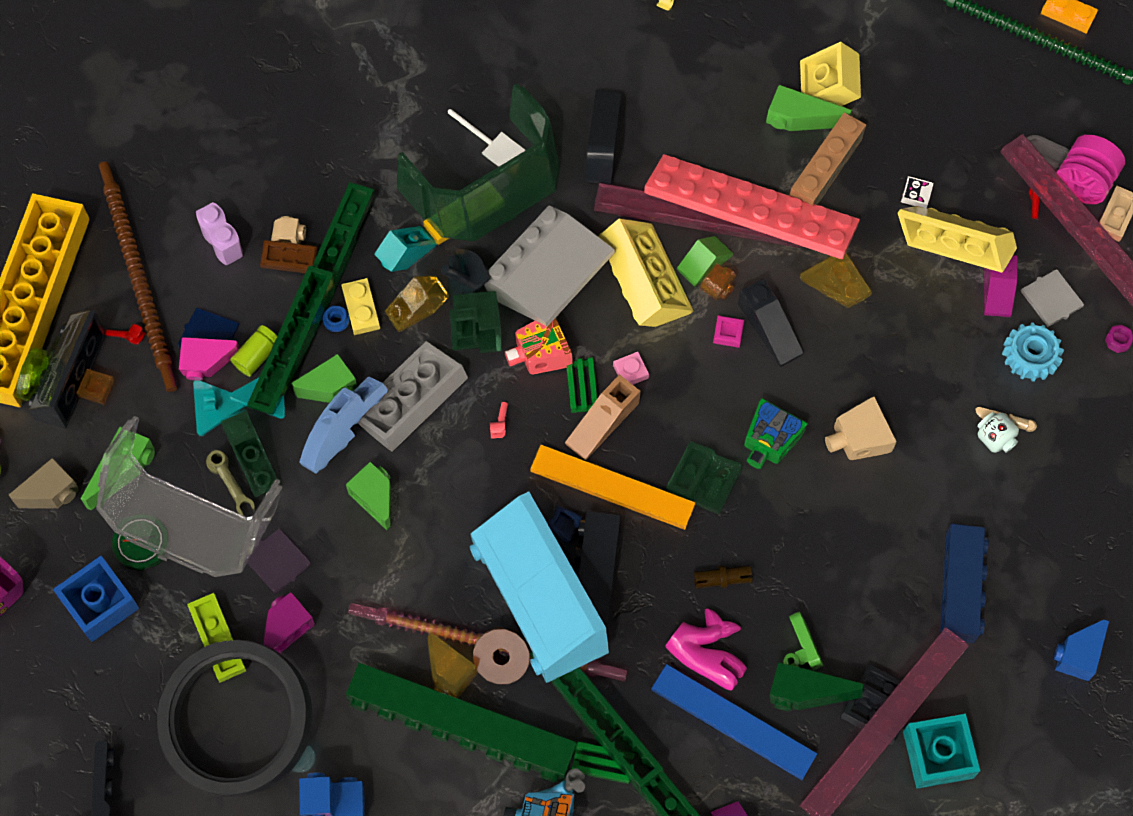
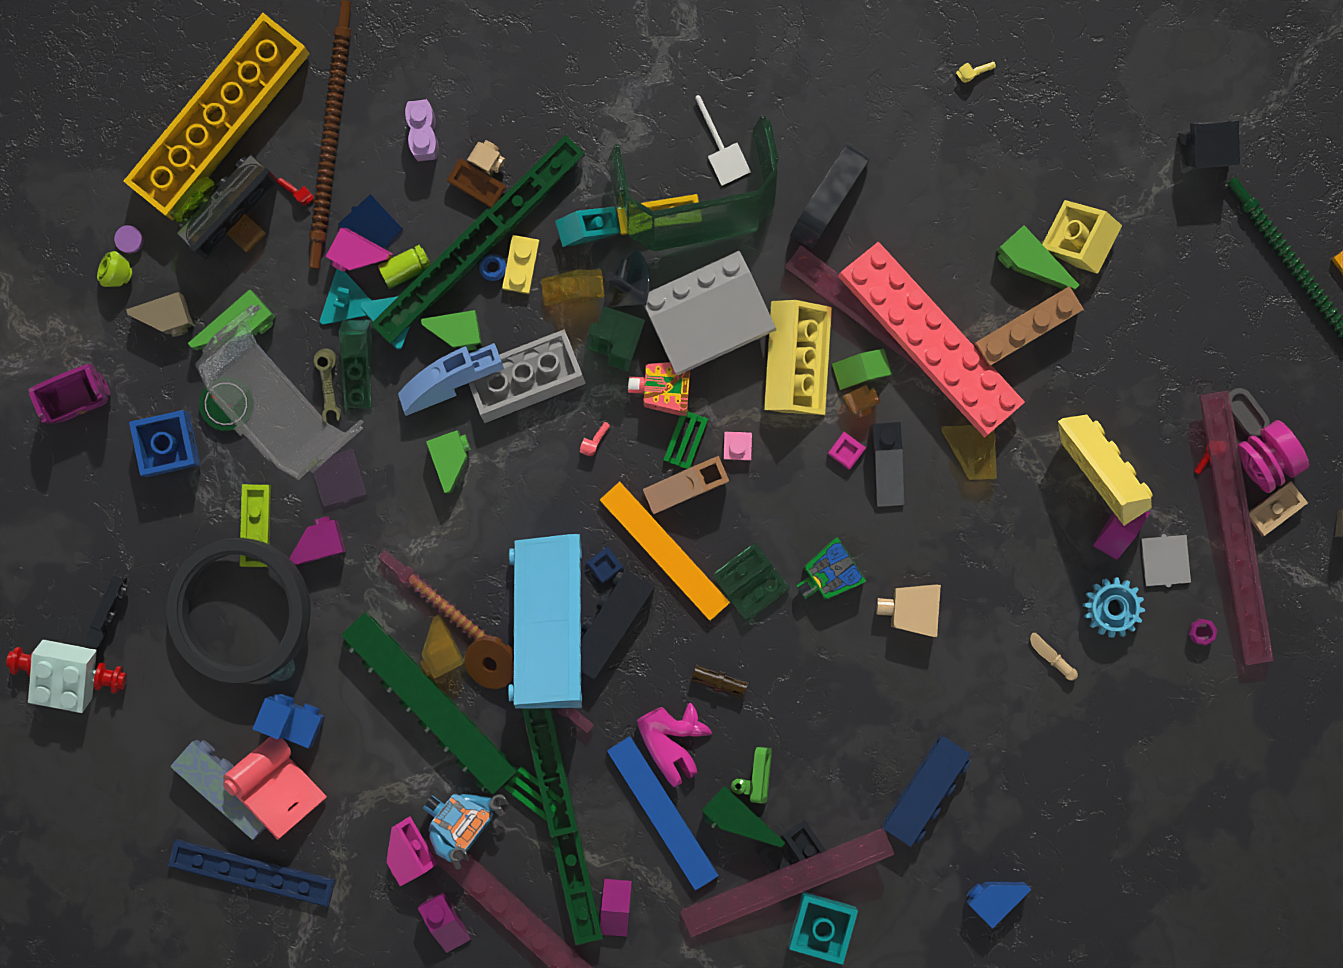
camera: 25 degrees right, 20 degrees up
(917, 192) = (1099, 394): tile -> none
(998, 432) = (1036, 669): light aqua head -> none

